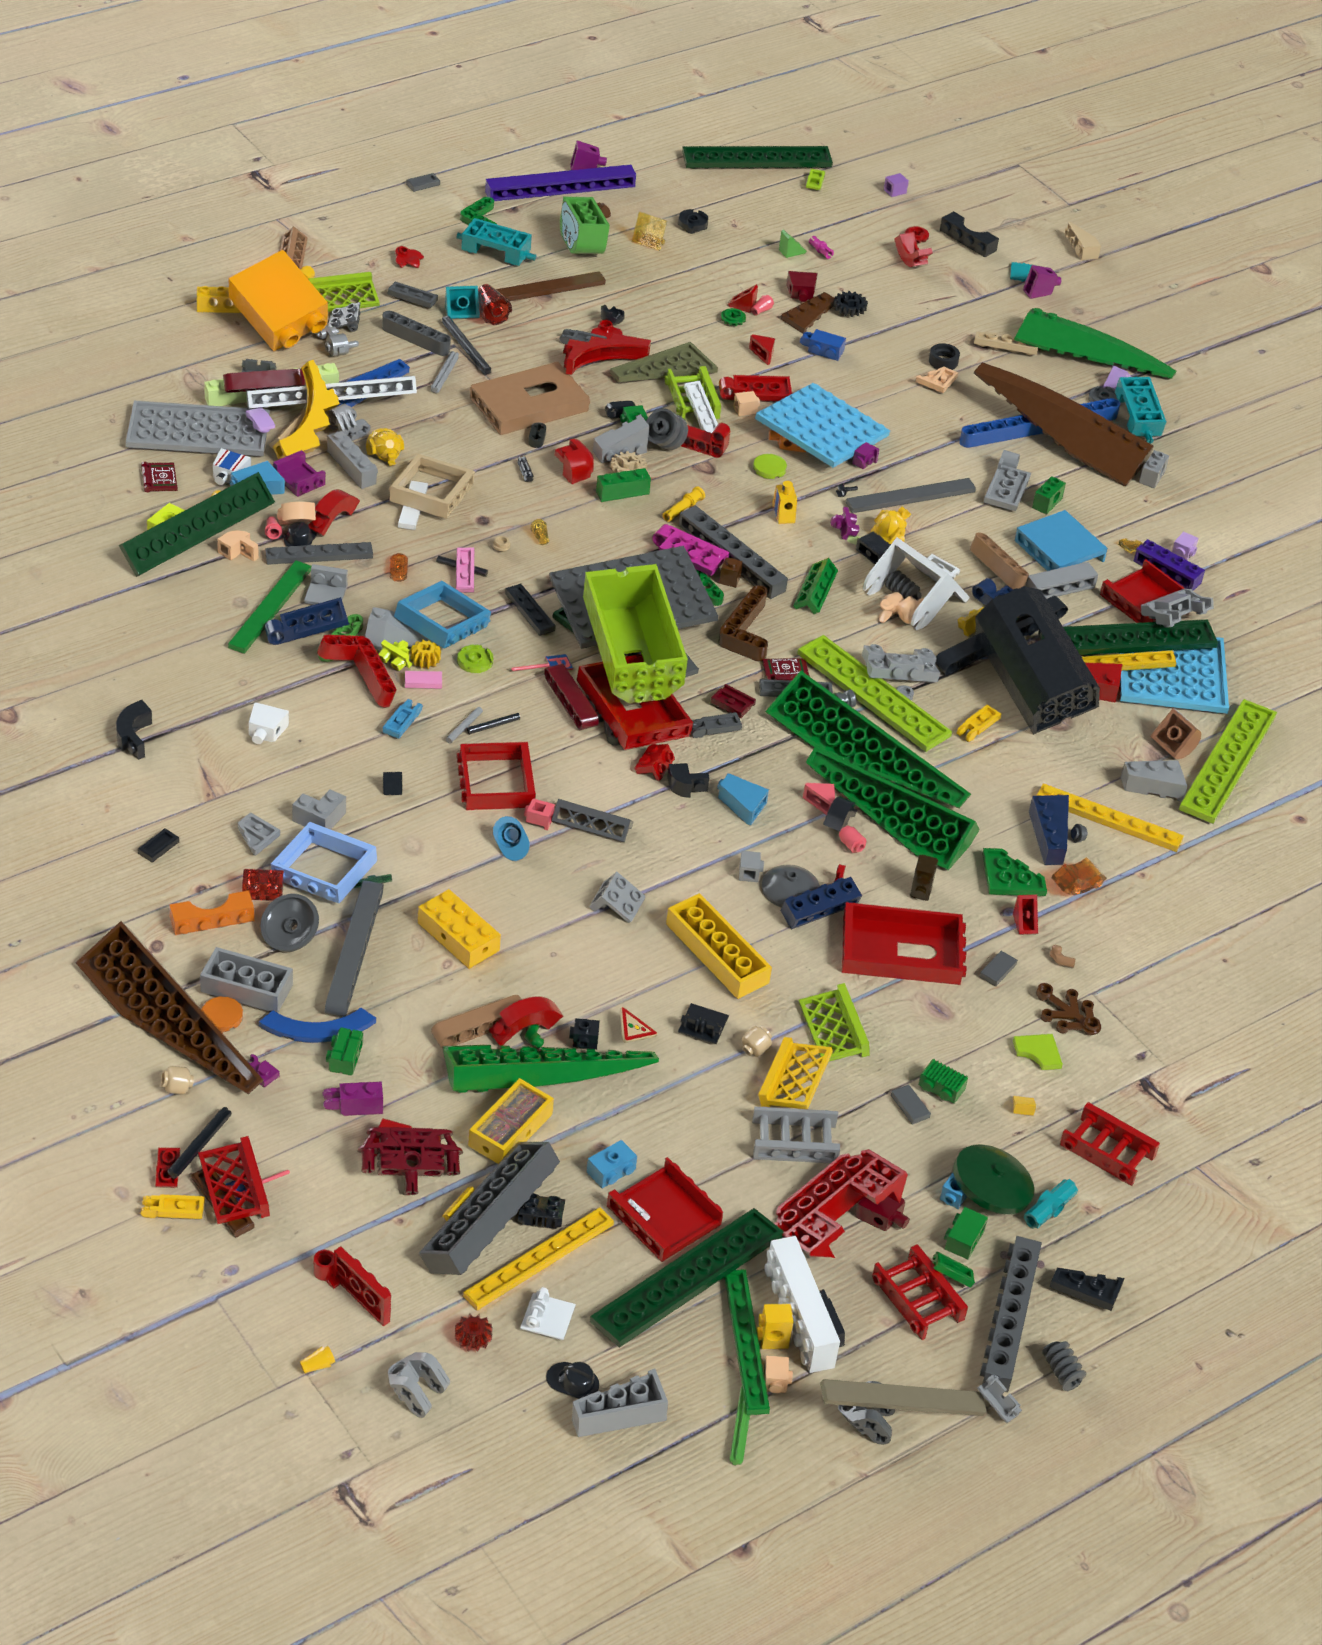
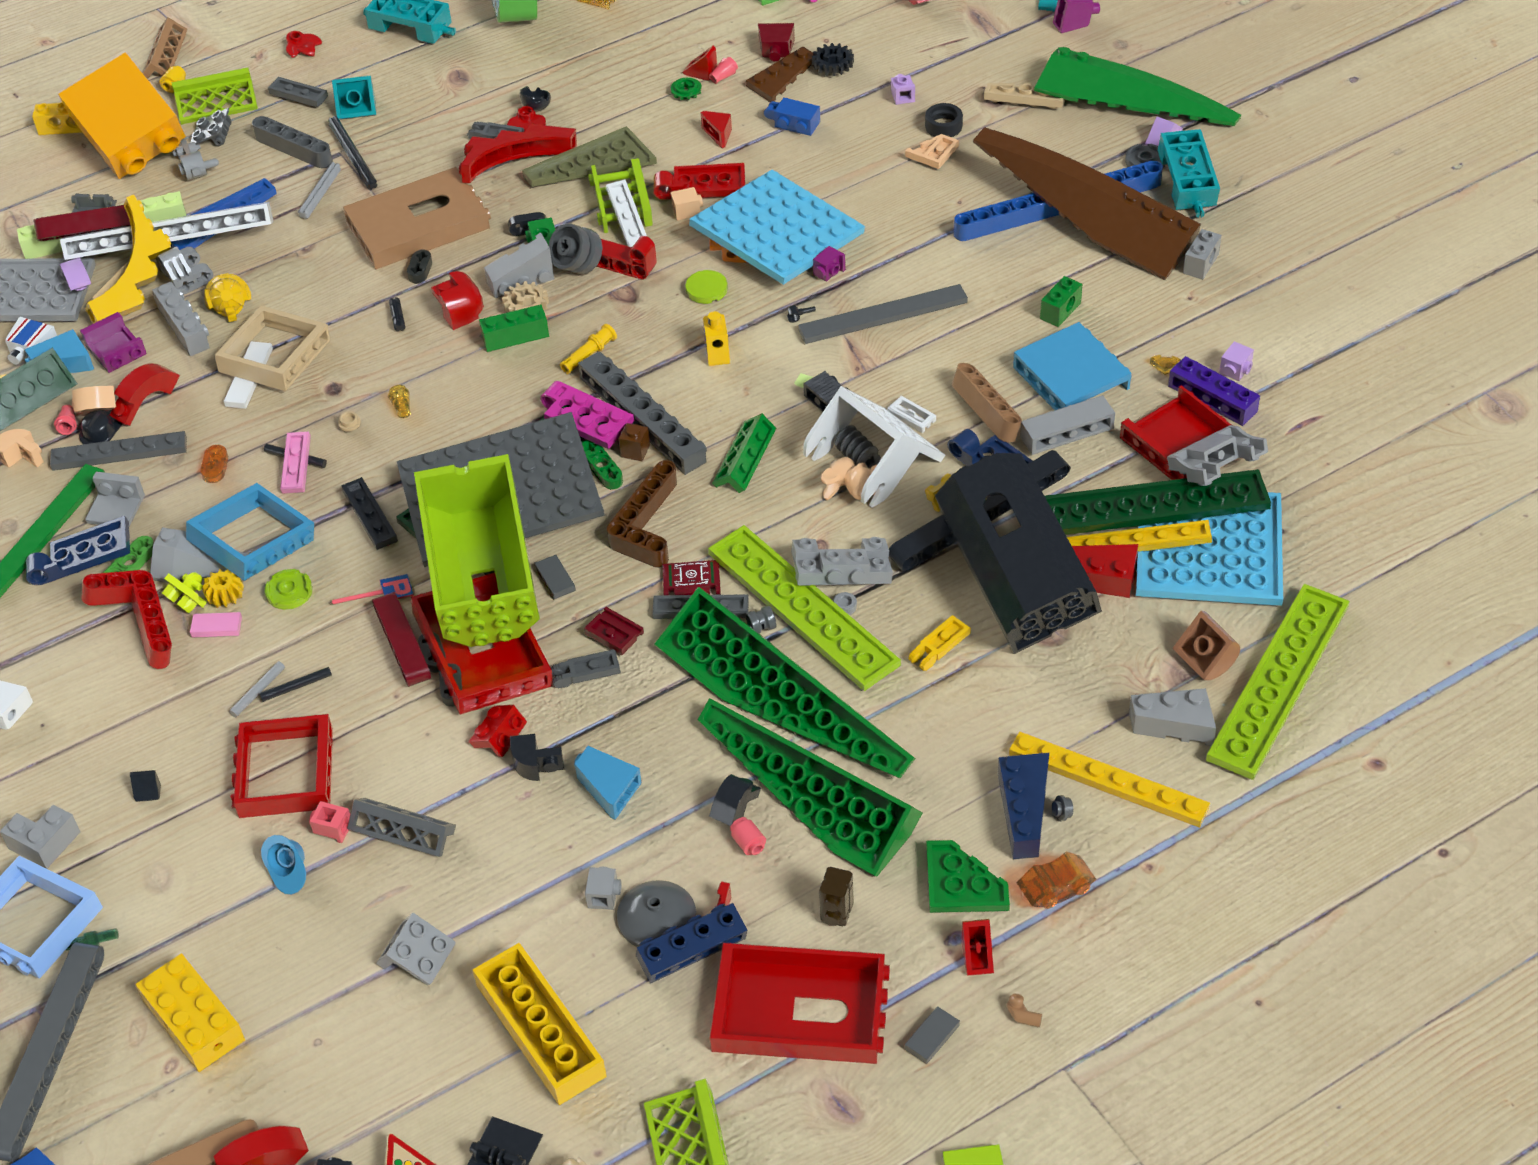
camera: 10 degrees right, 5 degrees up
(402, 719) = (177, 685): dark azure hinge -> none
(493, 305) = (389, 99): clear red cone -> none
(553, 286) = (459, 69): reddish brown tile -> none
(819, 795) = (710, 768): coral slope -> none
(846, 523) = (790, 361): magenta hips -> none
(891, 524) = (850, 361): yellow helmet -> none
(909, 326) = (901, 84): none -> lavender brick
(1007, 475) = (1008, 276): light grey hinge -> none
(1089, 1024) = (1027, 1105): reddish brown plant -> none

